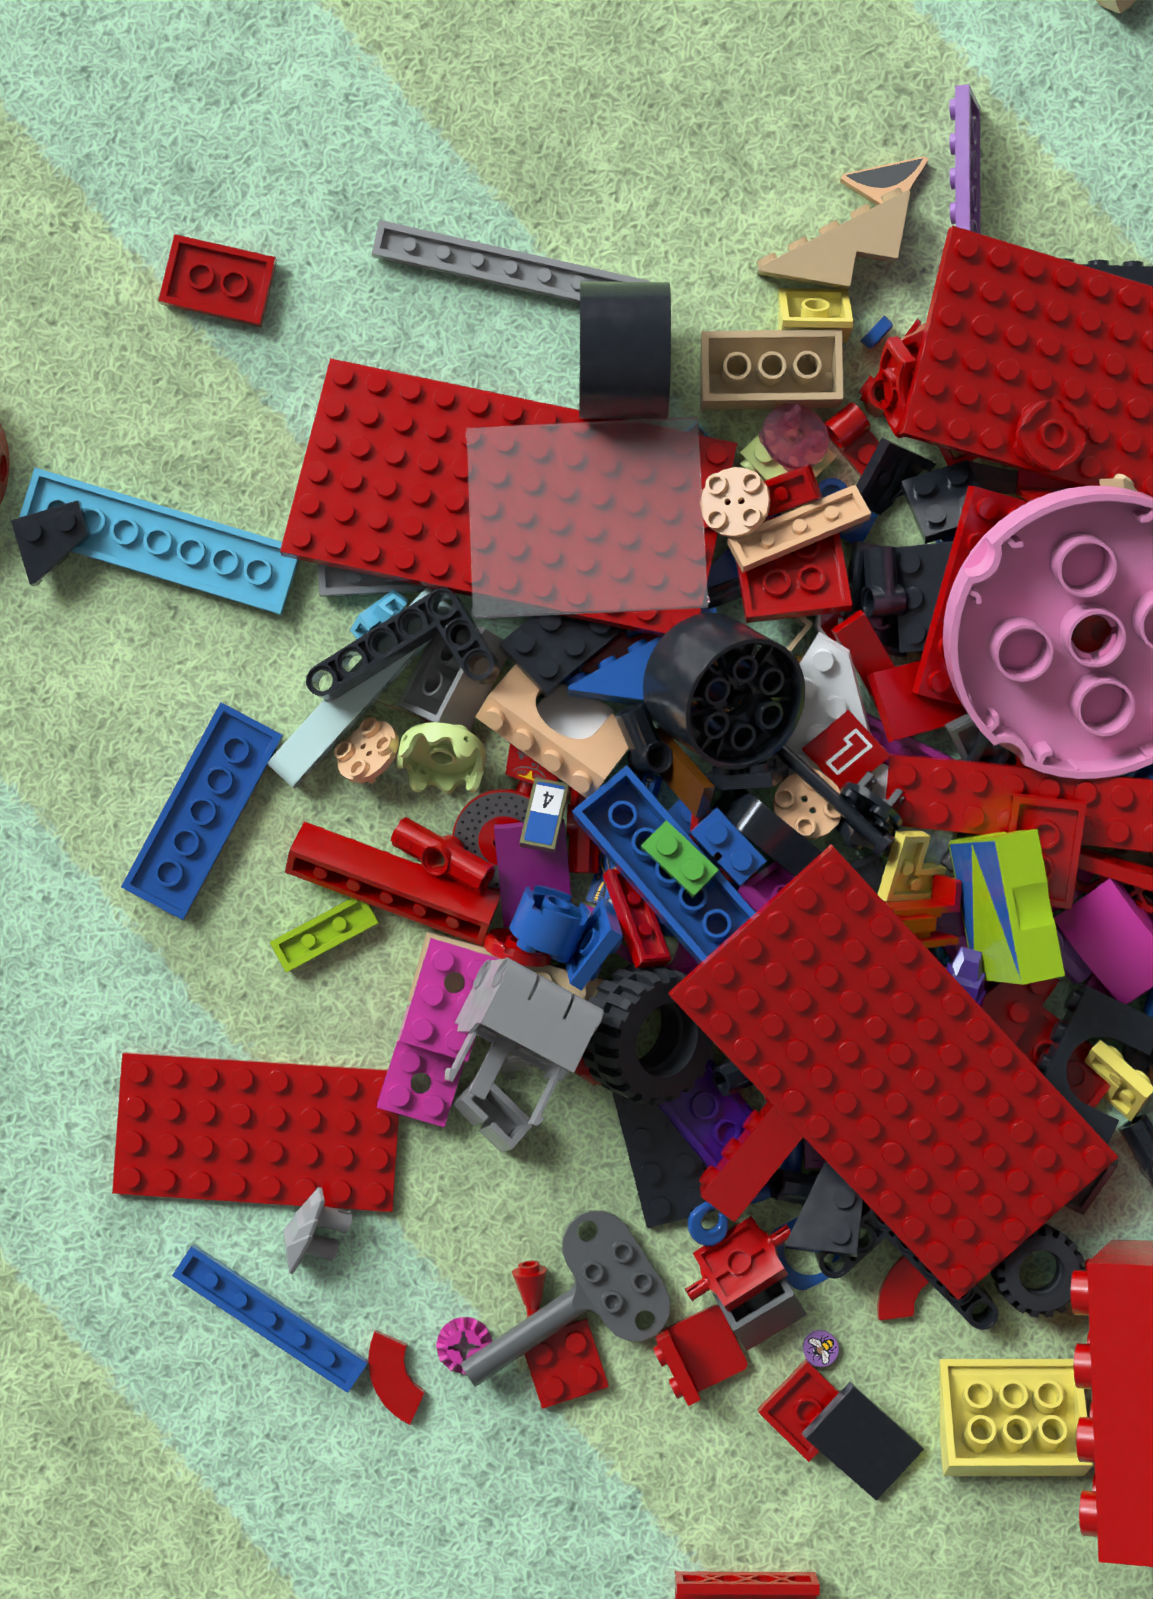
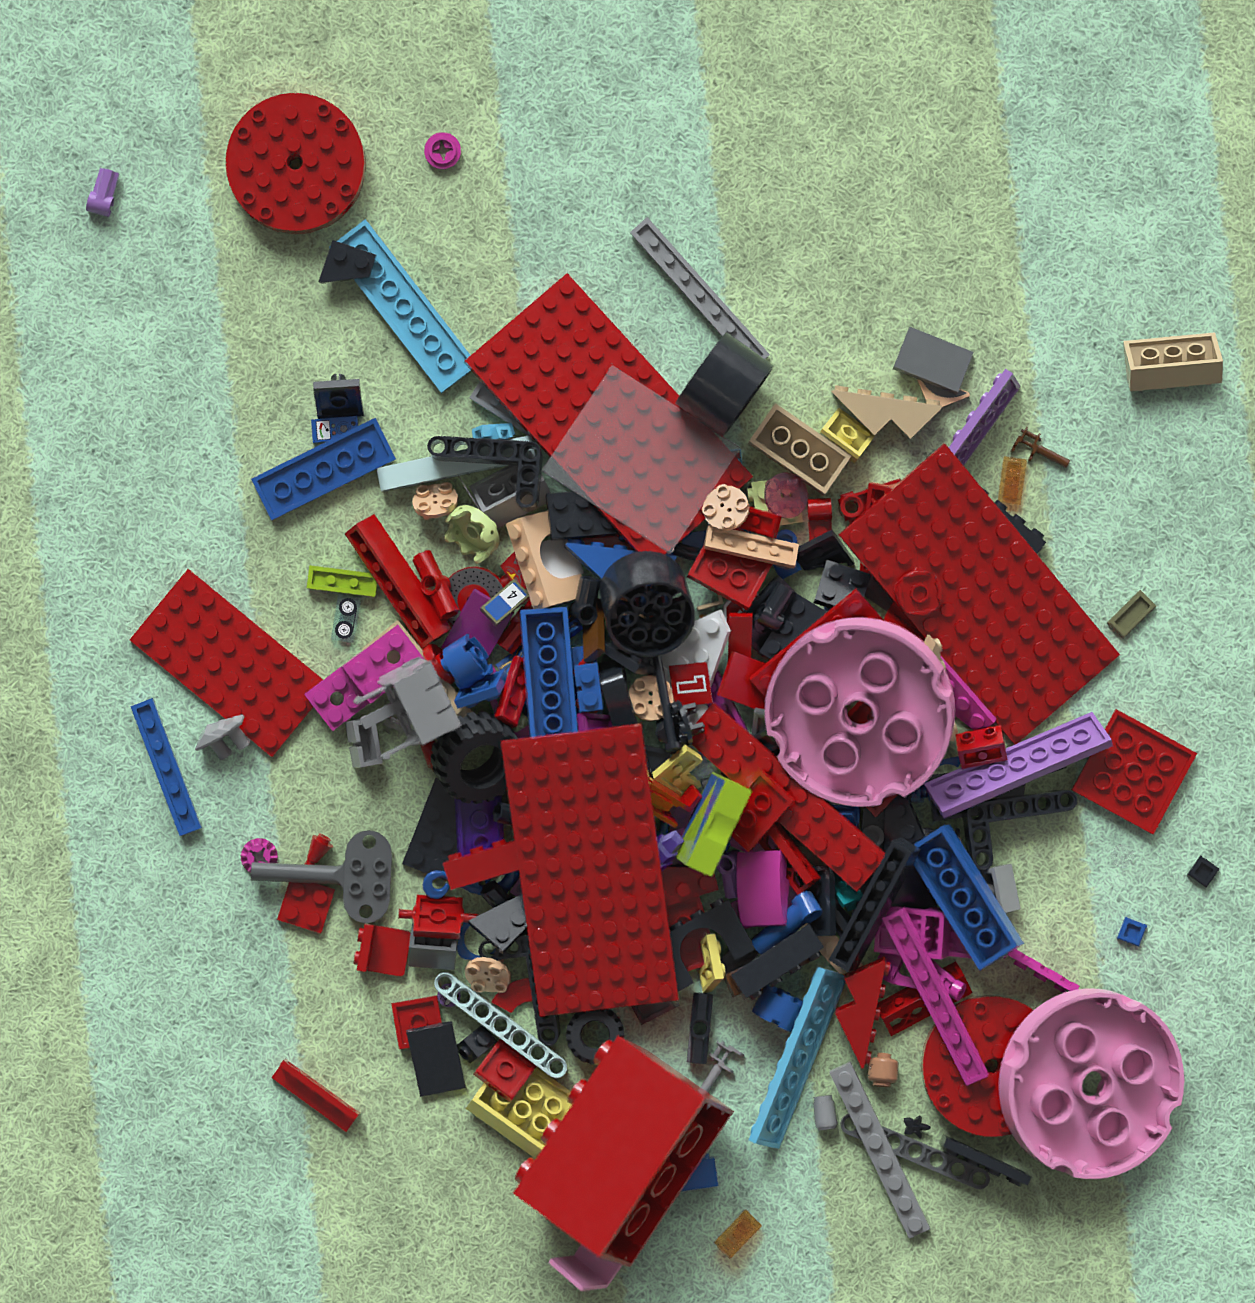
camera: 35 degrees right, 0 degrees up
(72, 302) = (449, 142): none -> dark pink gear
(157, 710) = (338, 397): none -> black tile
(174, 755) = (329, 428): none -> tile
(217, 280) = (536, 187): red plate -> none
(361, 974) = (346, 618): none -> tile
(391, 1377) = (208, 844): red tile -> none
(679, 859) = (558, 675): bright green plate -> none
(853, 148) = (933, 360): none -> dark grey tile
(853, 1291) = (487, 975): none -> light nougat plate
(877, 332) = (873, 470): blue tile -> none
(896, 371) = (863, 499): red tile -> none
(898, 1385) = (476, 1044): none -> black bracket
(927, 1349) = (507, 1034): none -> light aqua beam
(959, 1394) = (505, 1070): none -> red tile
(1053, 225) = (1012, 480): none -> clear orange plate
(1059, 165) = (1040, 449): none -> reddish brown piece

